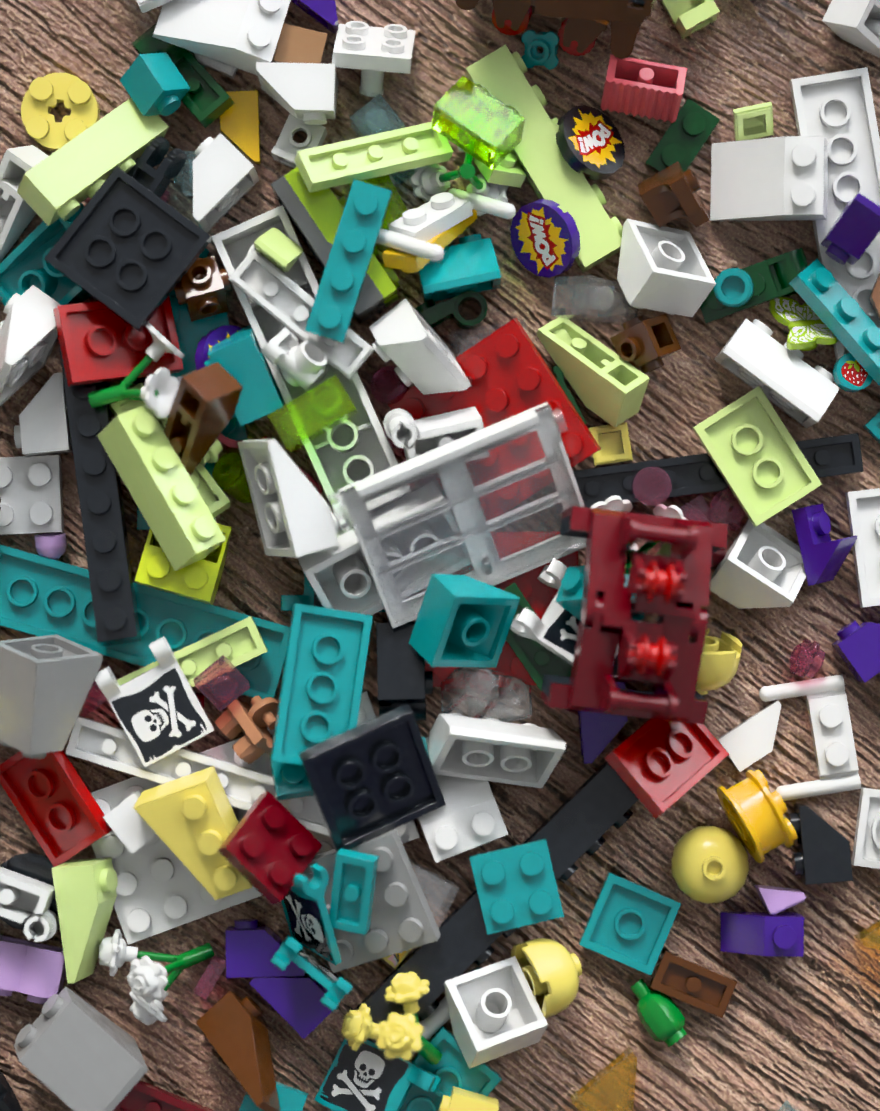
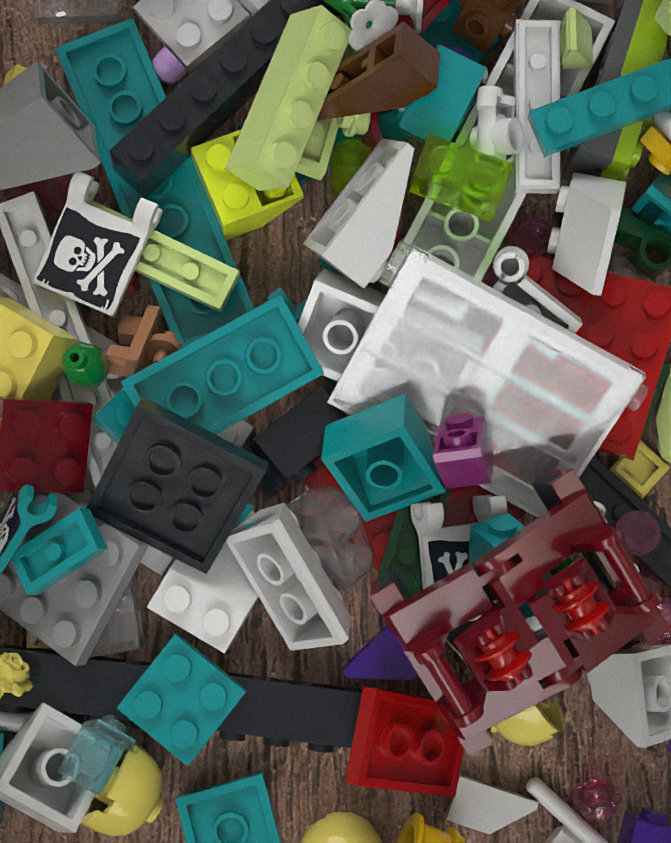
camera: 50 degrees right, 5 degrees down
(221, 683) = (159, 291): clear pink plate -> none
(244, 769) = (85, 365): none -> green plant
(502, 565) = (463, 451): none -> magenta slope
(506, 971) = (96, 753): none -> clear light blue bracket

